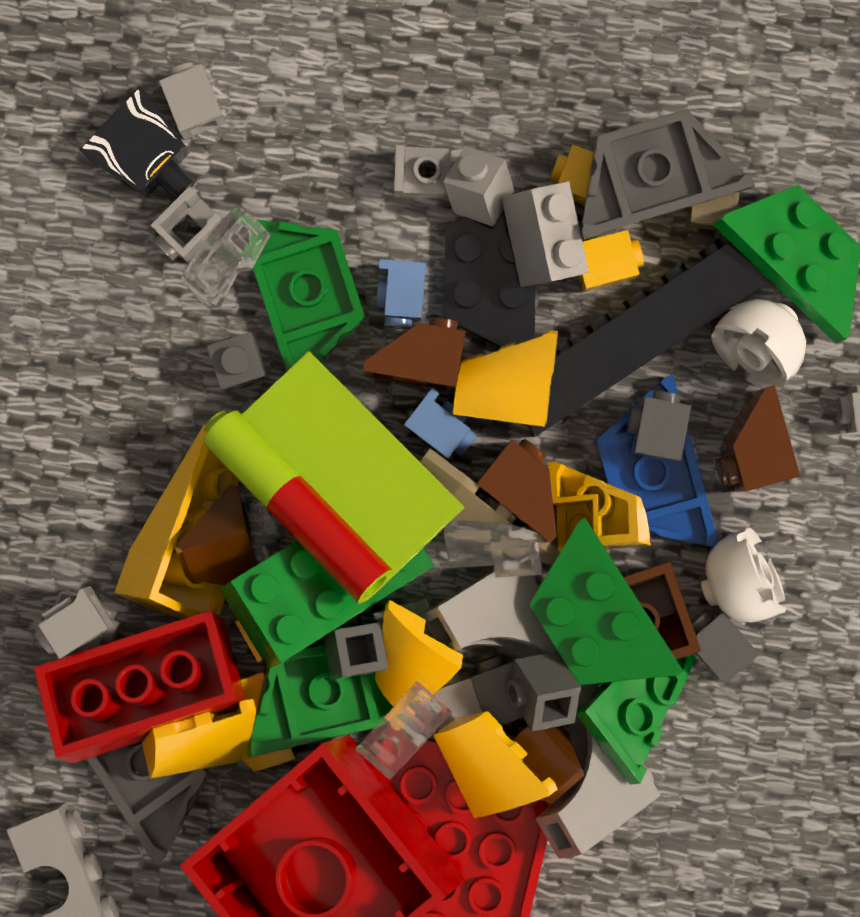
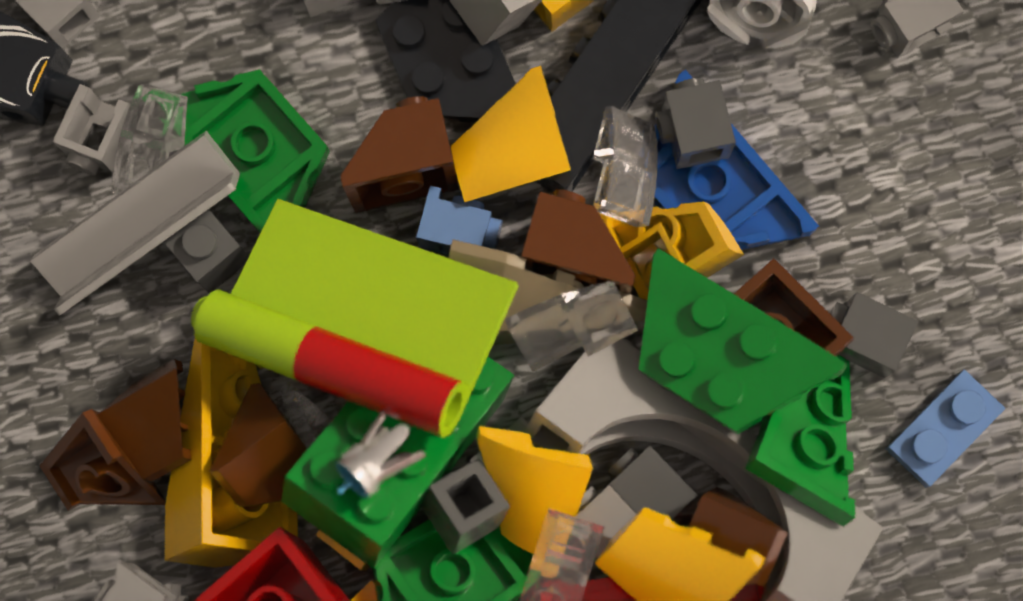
camera: 15 degrees left, 10 degrees down
(89, 496) = (94, 469): none -> reddish brown slope
(143, 480) = (148, 422): none -> reddish brown slope
(192, 320) = (136, 220): none -> light grey panel
(297, 601) = (364, 463): none -> flat silver piece
(401, 293) = (356, 101): medium blue brick -> none
(544, 691) = (699, 457): dark grey brick -> none
(589, 447) = (629, 167): none -> clear slope
(742, 579) = (859, 252): white cylinder -> none
(745, 738) = (945, 428): none -> medium blue plate
(757, 445) = (812, 99): reddish brown slope -> none

